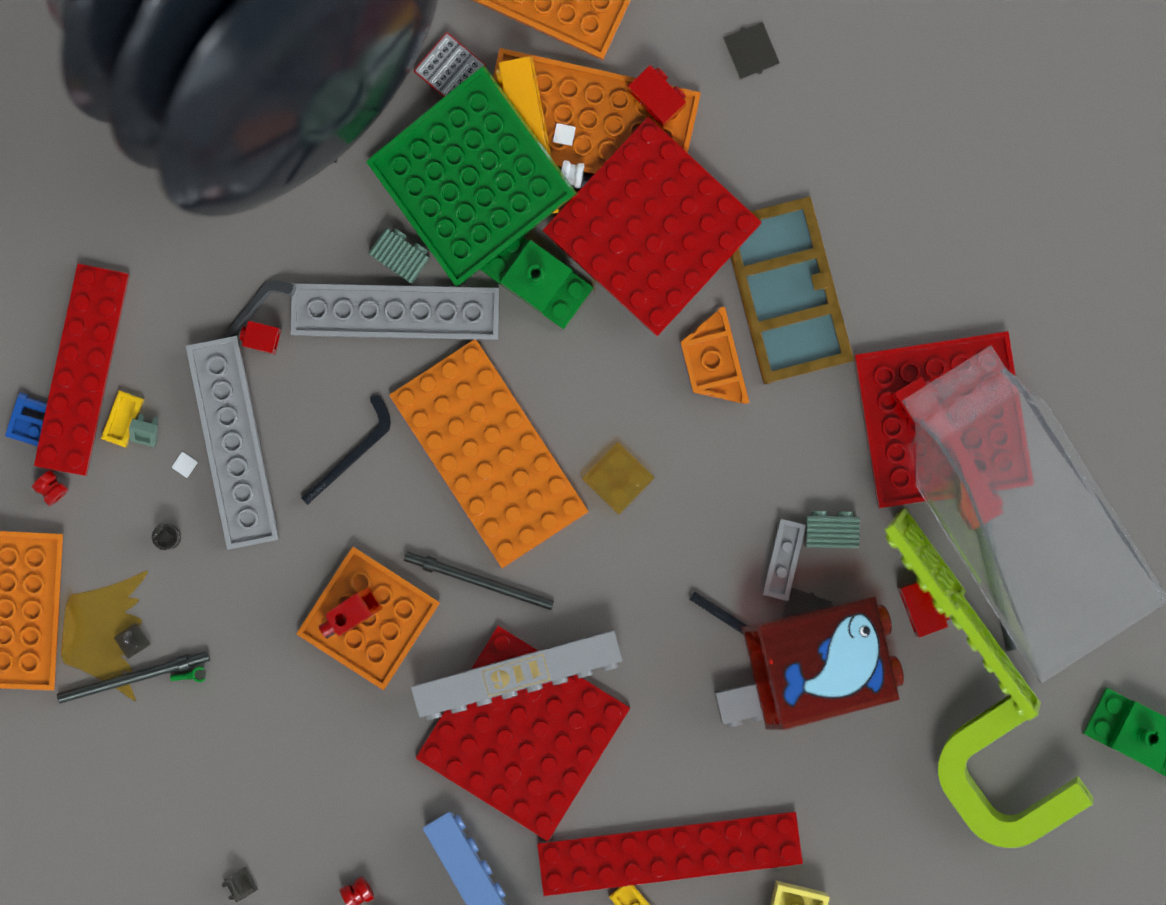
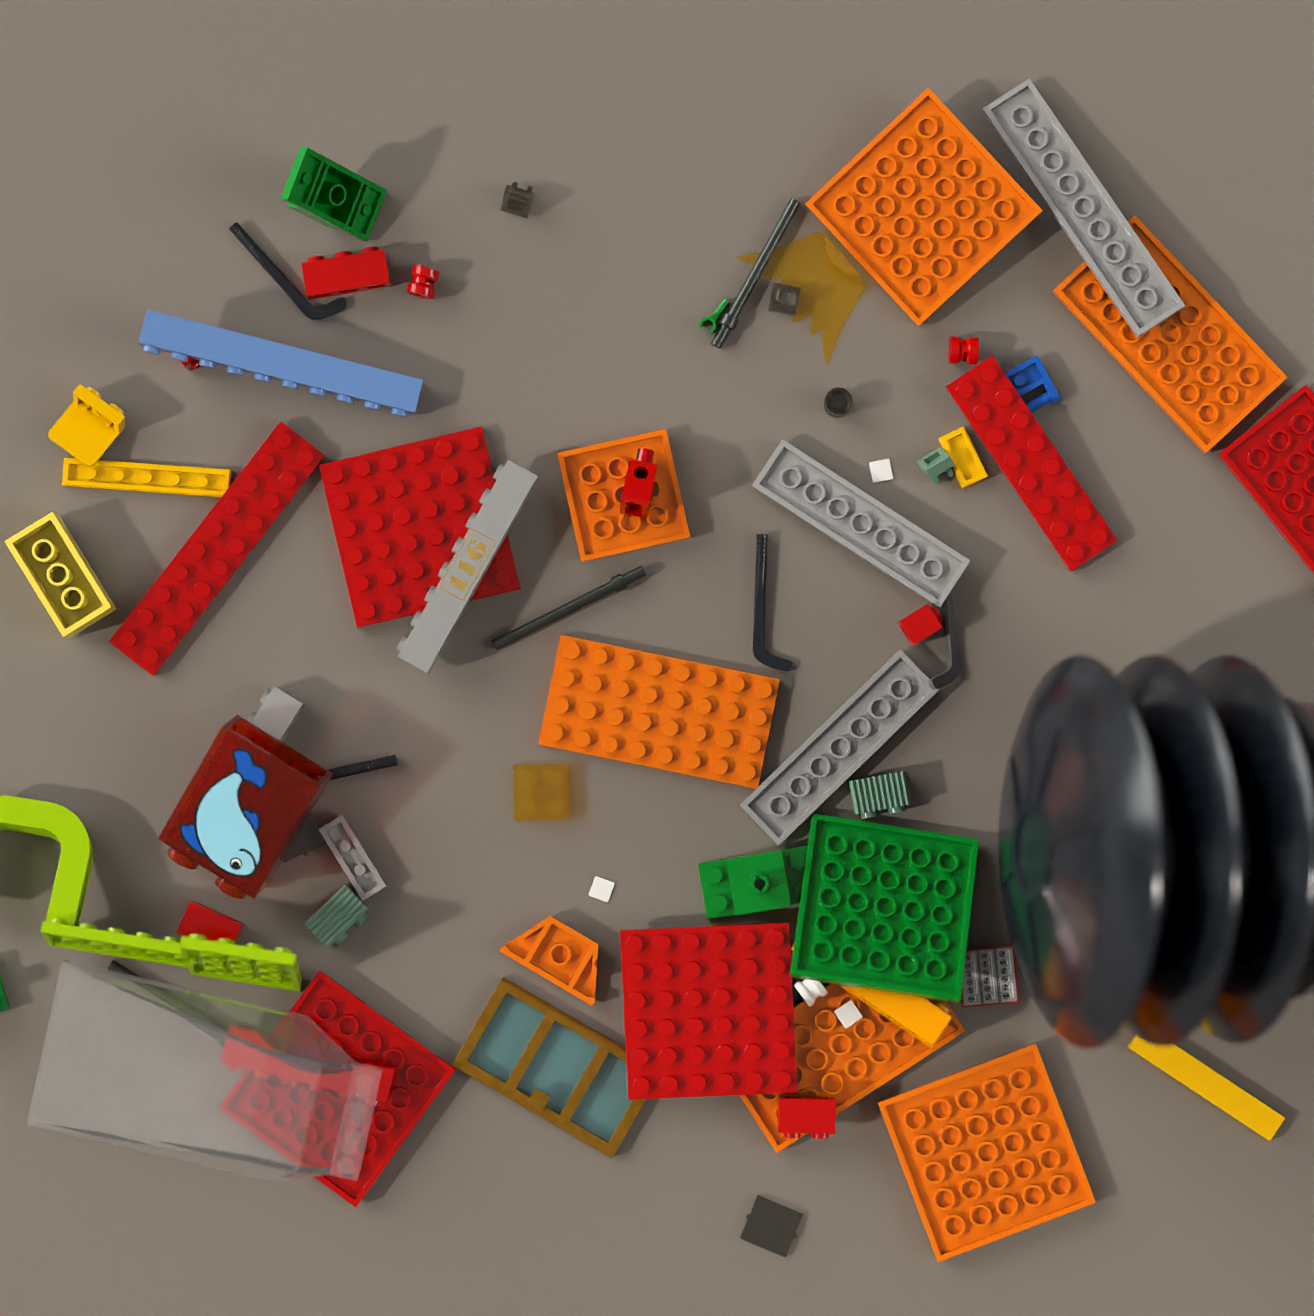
camera: 135 degrees right, 0 degrees up
(642, 376) = (601, 889): none -> white sticker

